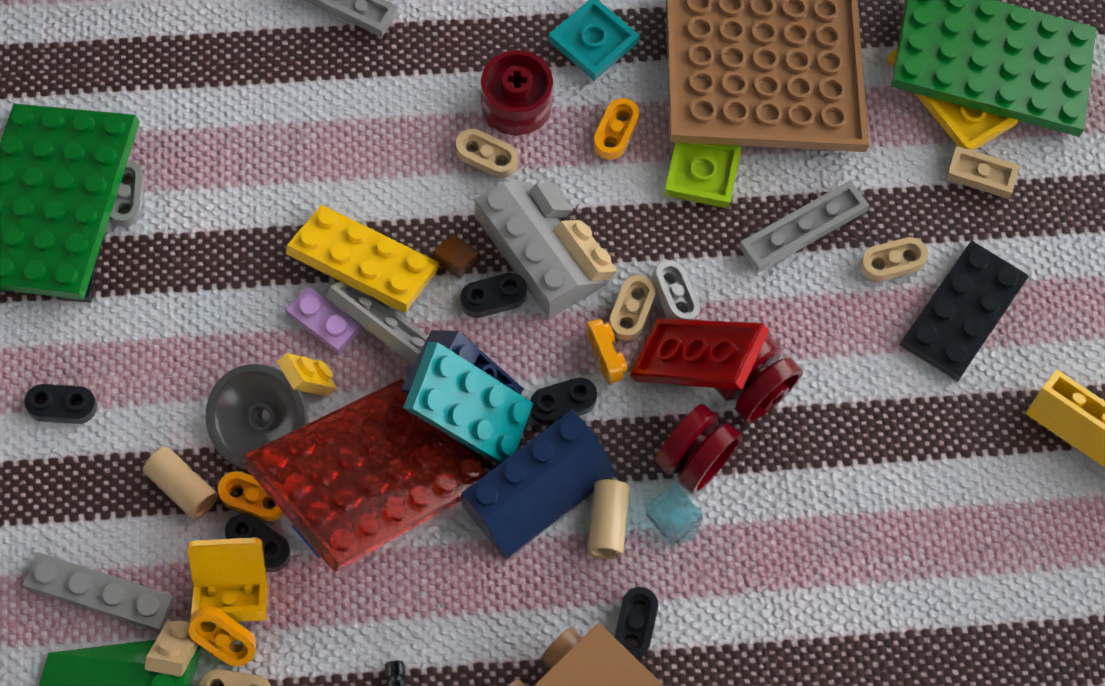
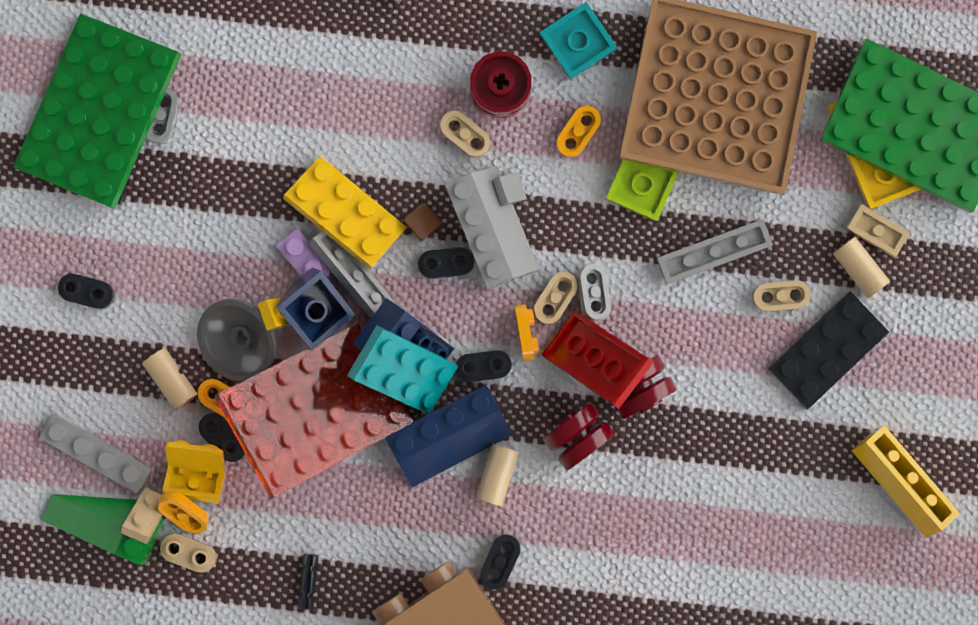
camera: 15 degrees right, 20 degrees up
(348, 358) = (314, 308): none -> dark blue slope
(585, 250) = (528, 240): tan plate -> none
(674, 515) = (550, 482): clear light blue brick -> none
(976, 212) = (861, 267): none -> tan pin

